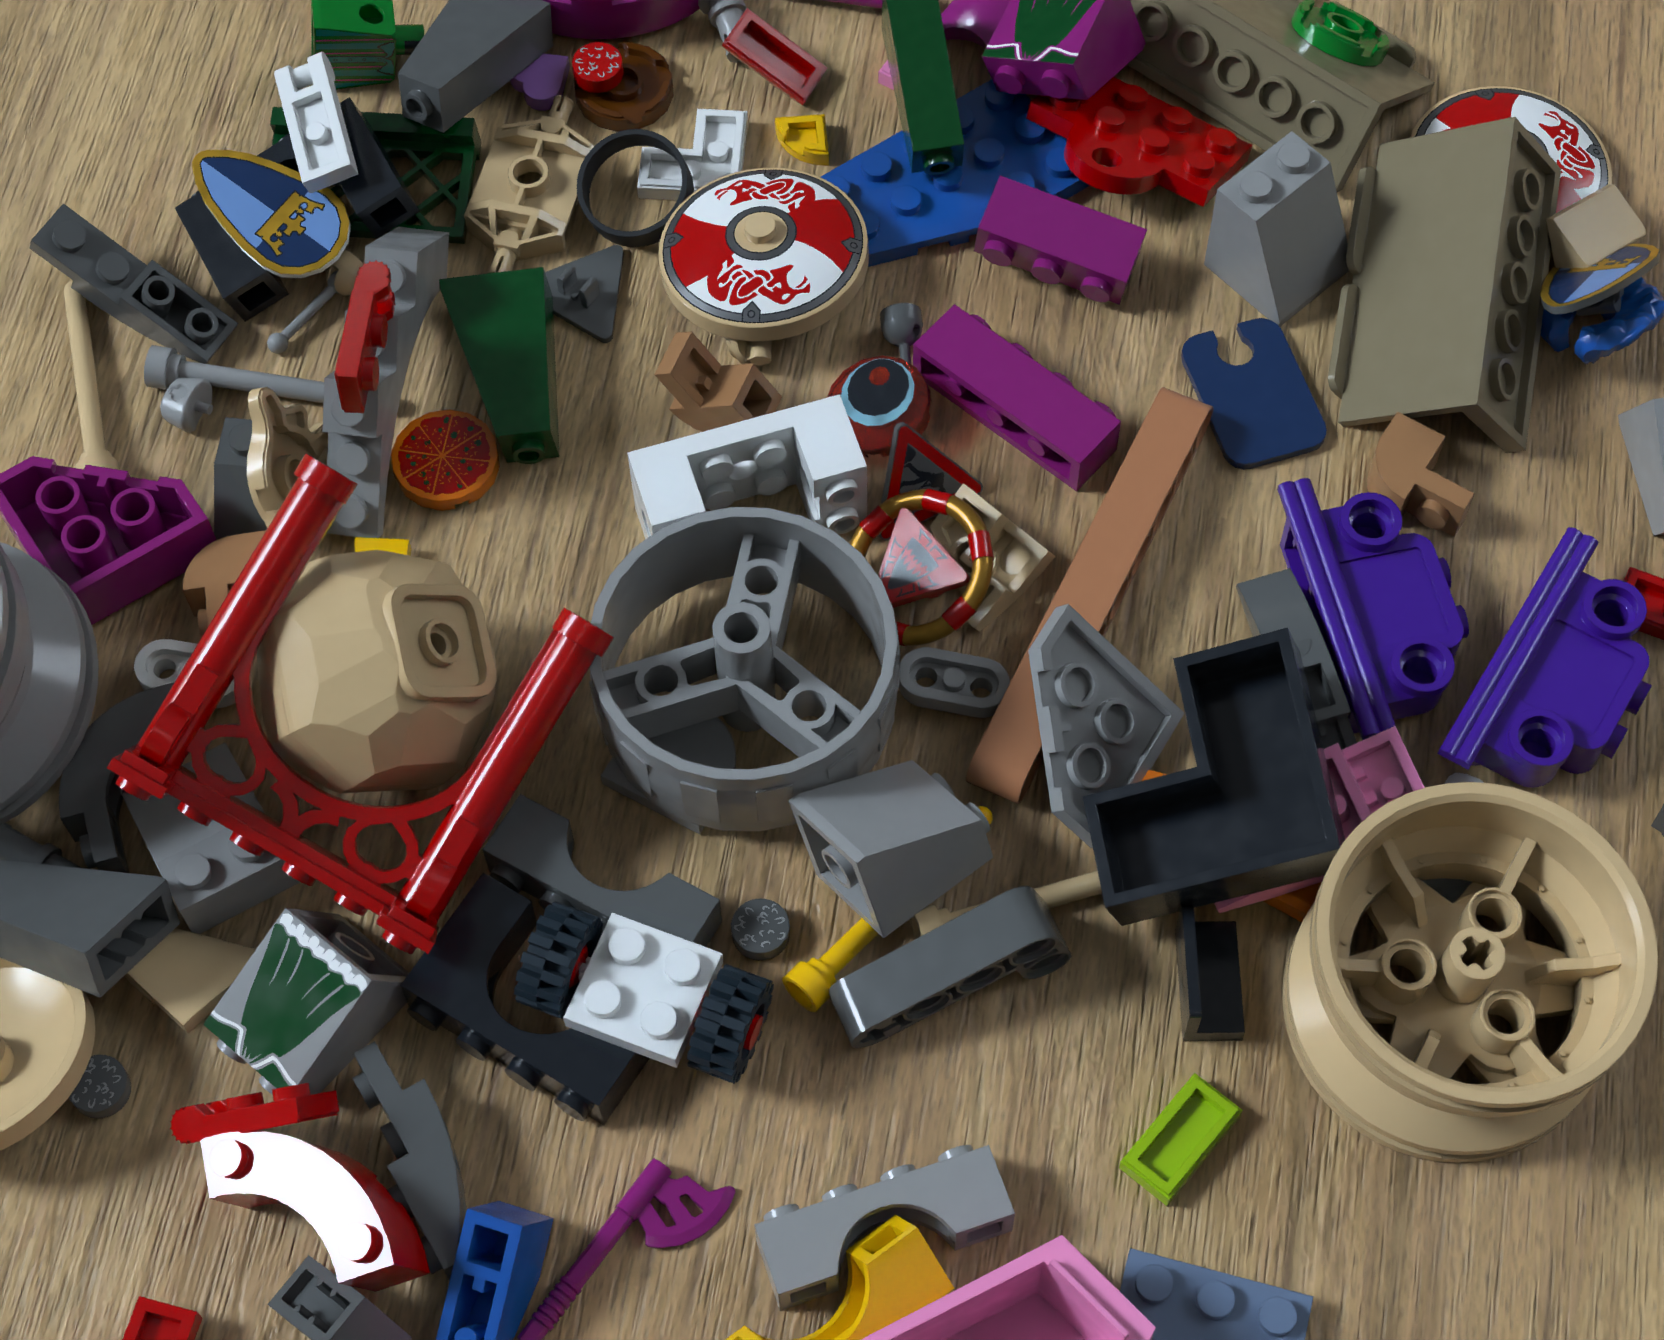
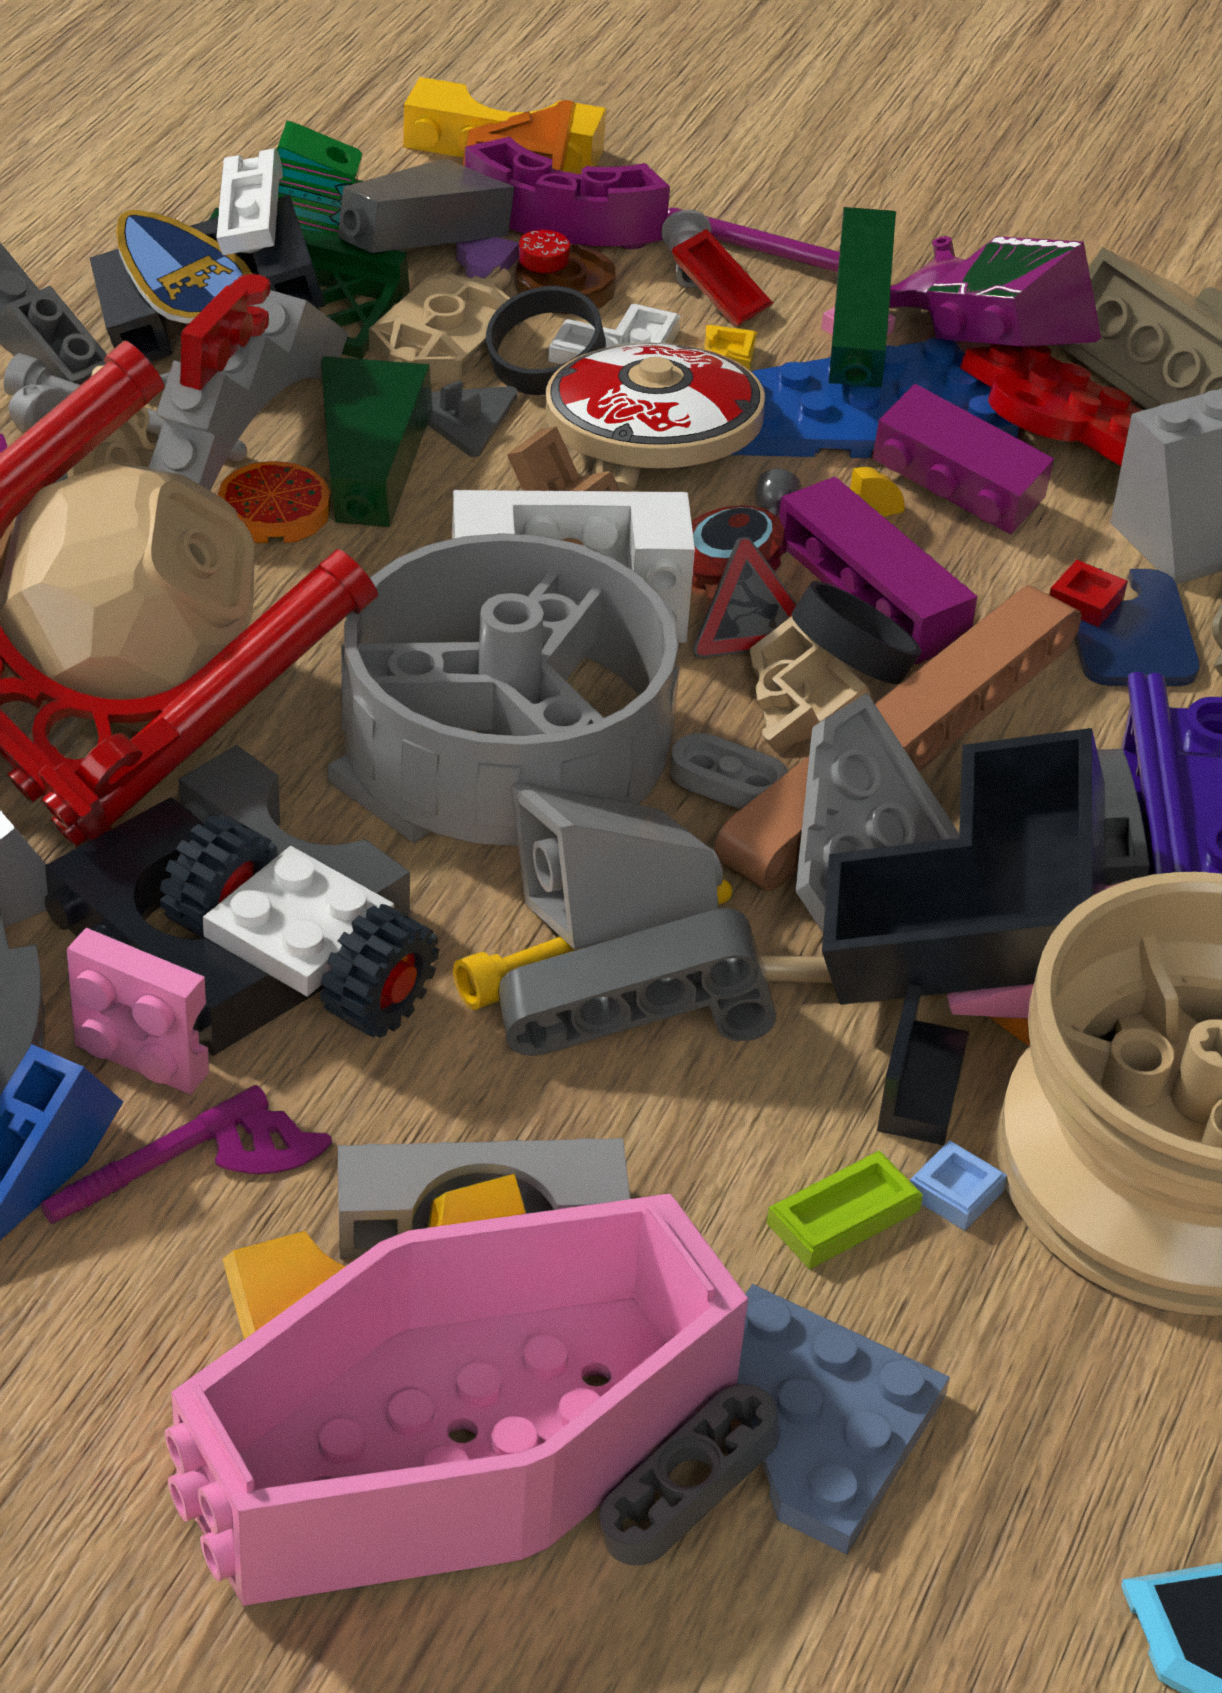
camera: 10 degrees right, 20 degrees down
(537, 1127) = (137, 1010): none -> bright pink brick
(760, 929) = (454, 924): dark grey tile -> none
(921, 567) = (730, 666): piece -> none
(989, 299) = (877, 491): none -> yellow tile
(1012, 516) = (856, 632): none -> black tyre
(1209, 371) = (1090, 591): none -> red tile
(1266, 1085) = (958, 1185): none -> light blue tile

